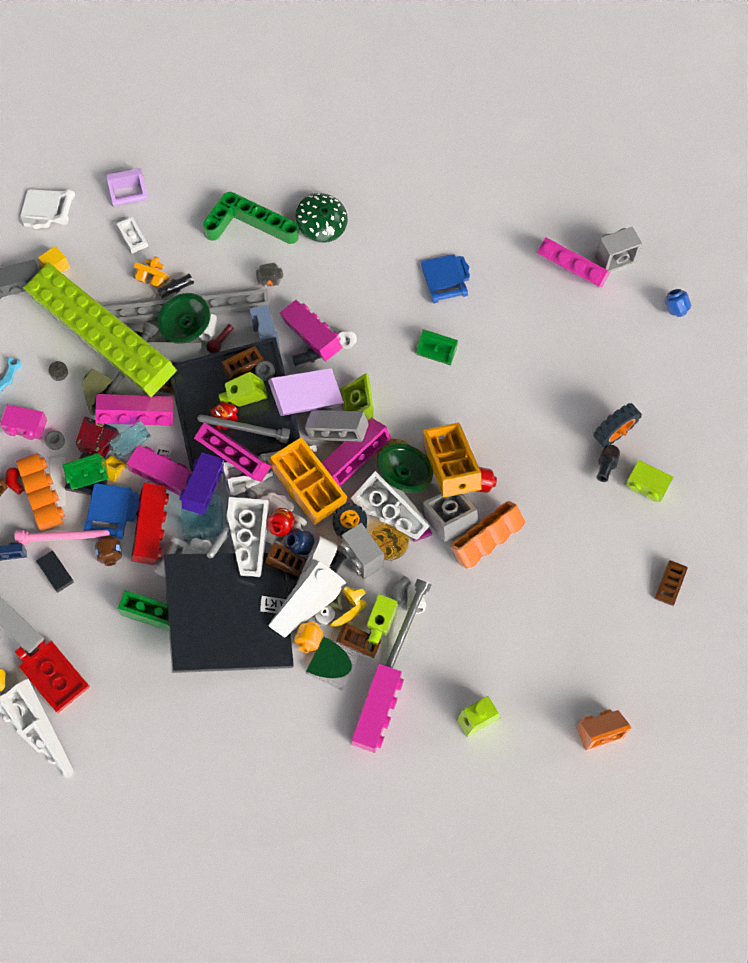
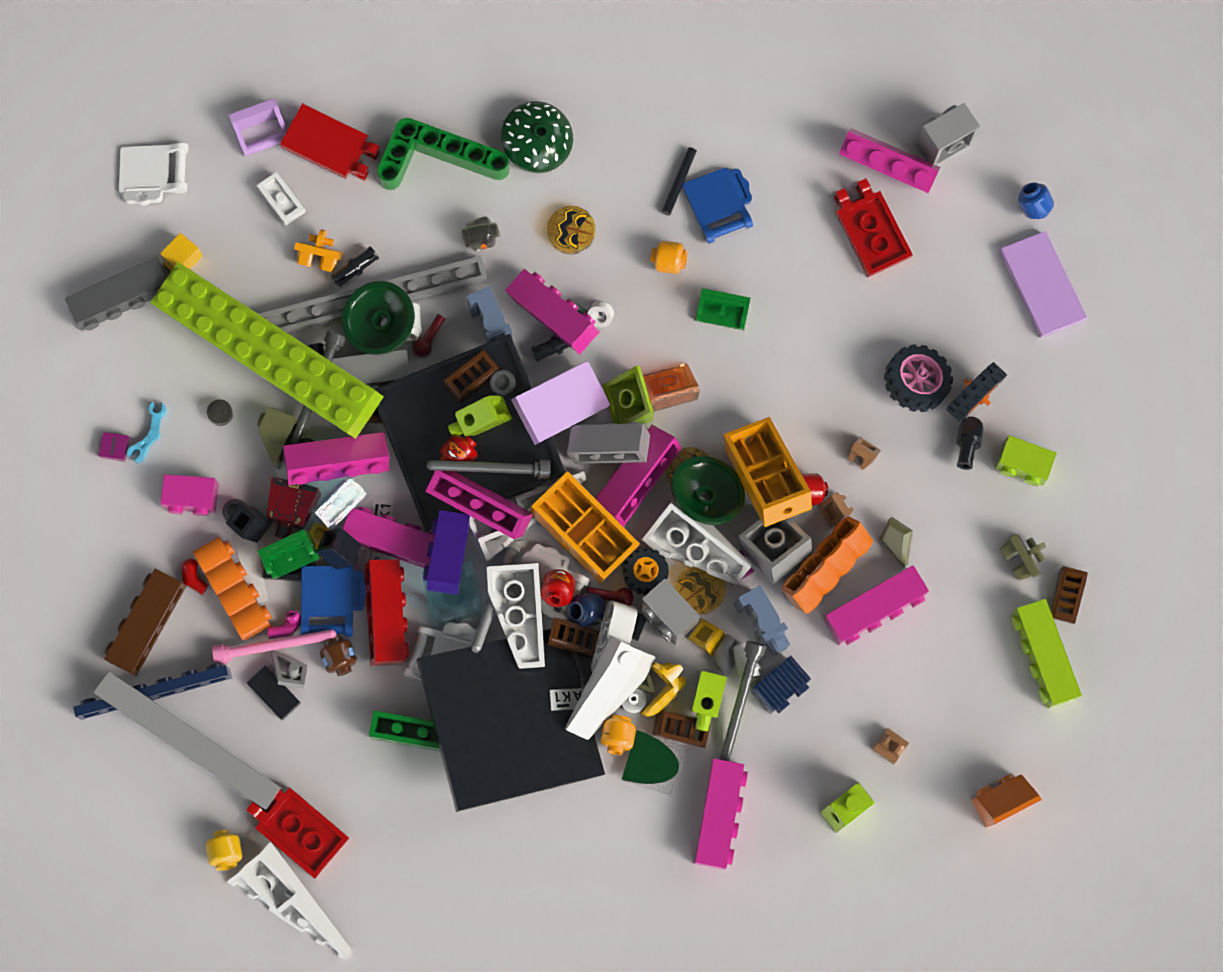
camera: 10 degrees left, 10 degrees up
(61, 446) = (248, 523): none -> black brick
(69, 556) = (288, 670): none -> light grey piece
(76, 525) = (288, 627): none -> dark pink arm
(123, 472) = (338, 548): none -> black brick
(173, 203) = (328, 143): none -> red tile
(329, 536) = (622, 595): none -> dark red bar
(335, 281) = (571, 229): none -> clear yellow tile
(388, 576) = (707, 637): none -> yellow slope
(390, 397) = (671, 387): none -> clear orange slope
(403, 307) = (669, 257): none -> light orange head
(419, 259) = (679, 181): none -> black bar
(433, 563) = (765, 619): none -> sand blue hips
(439, 618) = (781, 685): none -> dark blue brick
(499, 495) = (835, 509): none -> medium nougat tile
(518, 676) = (890, 746): none -> medium nougat tile
(521, 570) = (876, 605): none -> dark pink brick
(531, 460) = (865, 450): none -> medium nougat tile
(544, 525) = (897, 539): none -> olive piece
(554, 308) = (871, 229): none -> red tile
(579, 404) = (930, 366): none -> black wheel
(642, 558) = (1028, 567): none -> olive hips
(649, 624) = (1046, 654): none -> lime brick
(677, 361) = (1043, 284): none -> lavender tile

